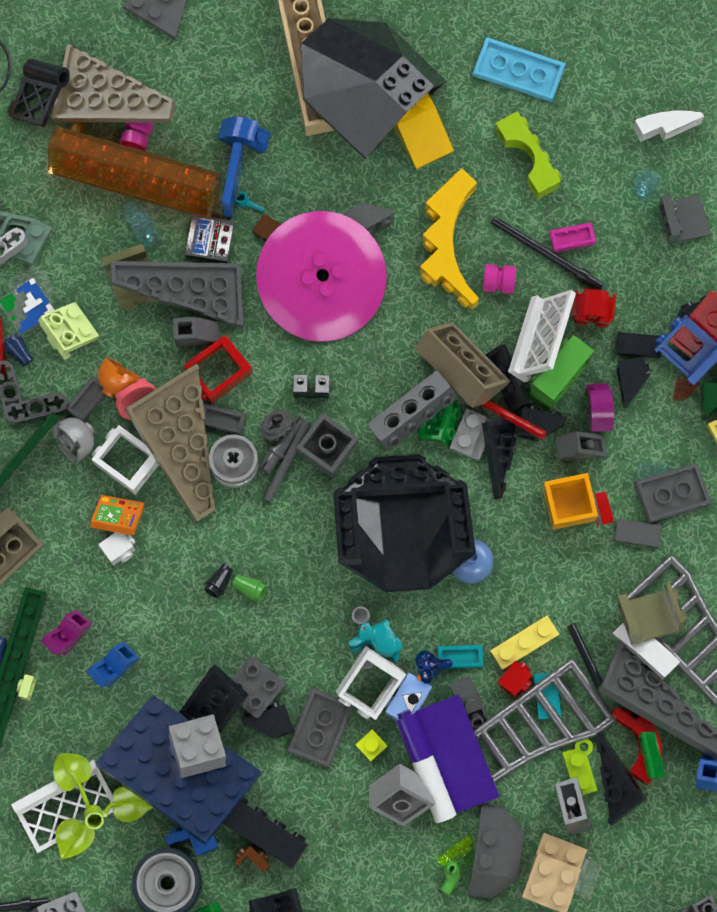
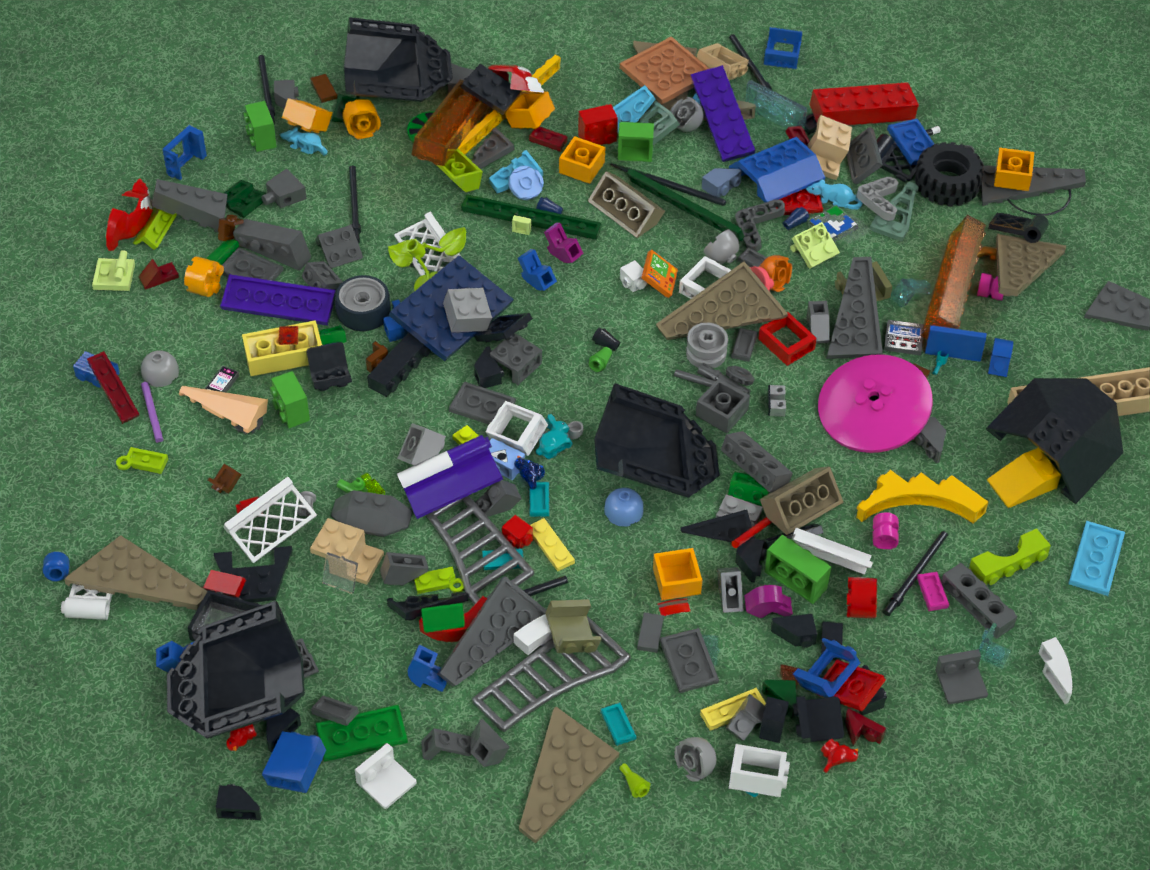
camera: 90 degrees right, 25 degrees down
(562, 215) = (978, 599): none -> dark grey brick

